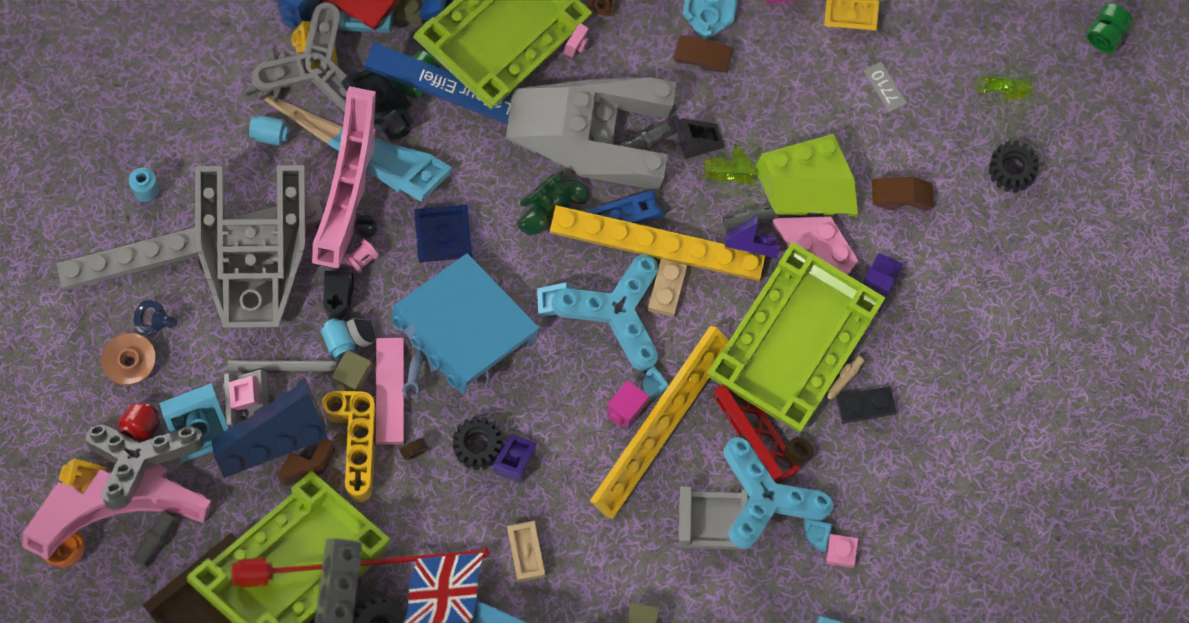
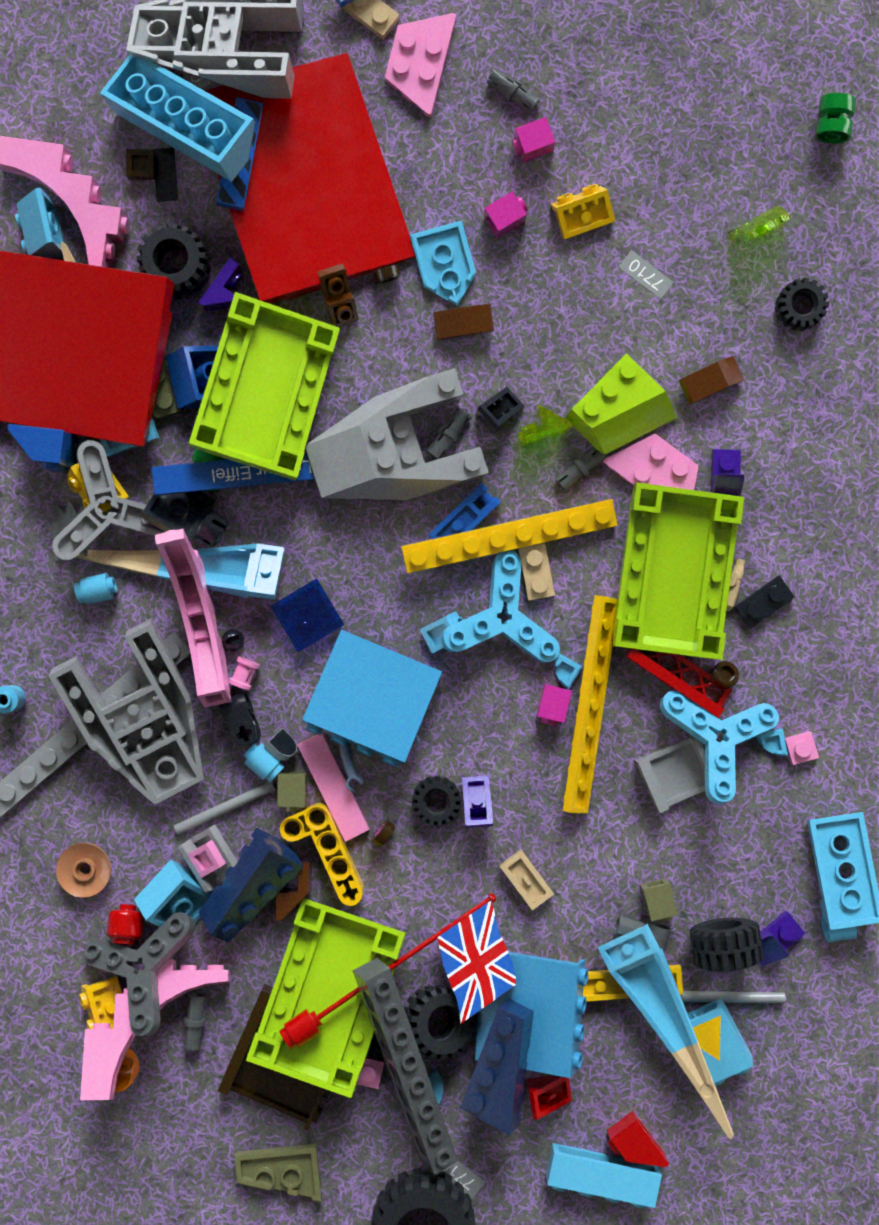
camera: 25 degrees left, 20 degrees up
(159, 318) = (91, 822): dark blue piece -> none
(545, 198) = (386, 538): dark green animal -> none
(577, 41) = (340, 364): bright pink plate -> none
(744, 239) = (591, 494): dark purple slope -> none

